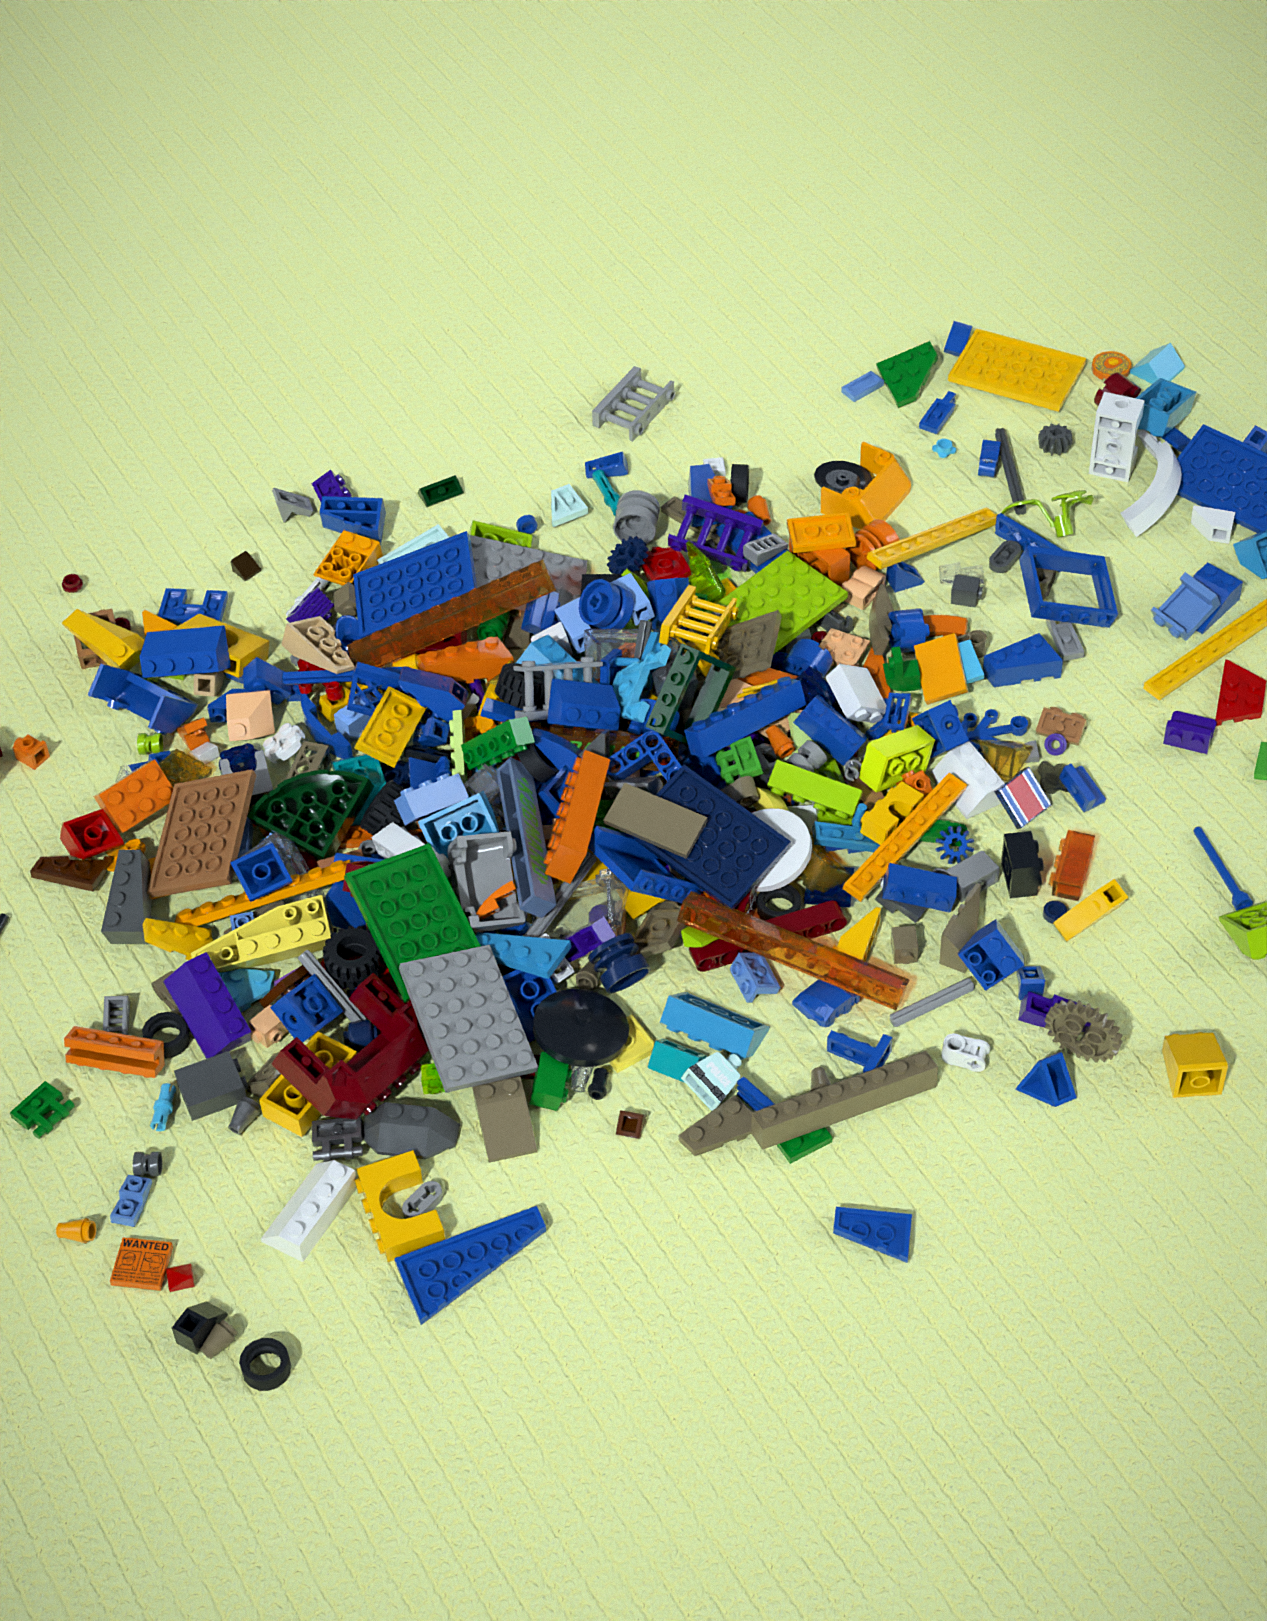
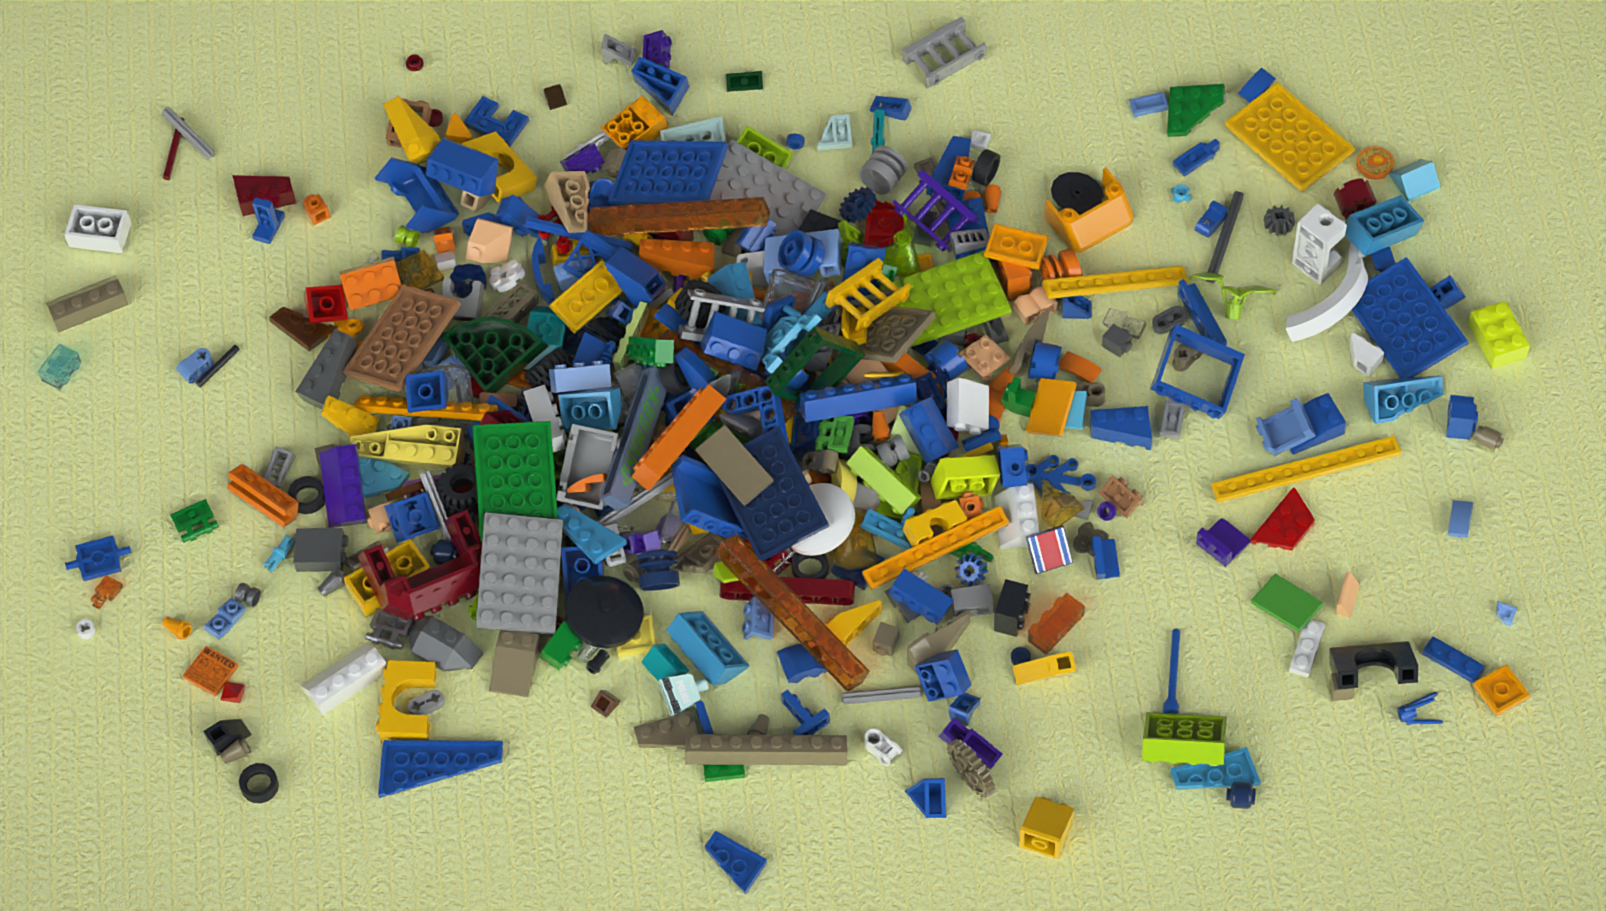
camera: 25 degrees right, 10 degrees up
(895, 726) = (1000, 427): blue tile -> none

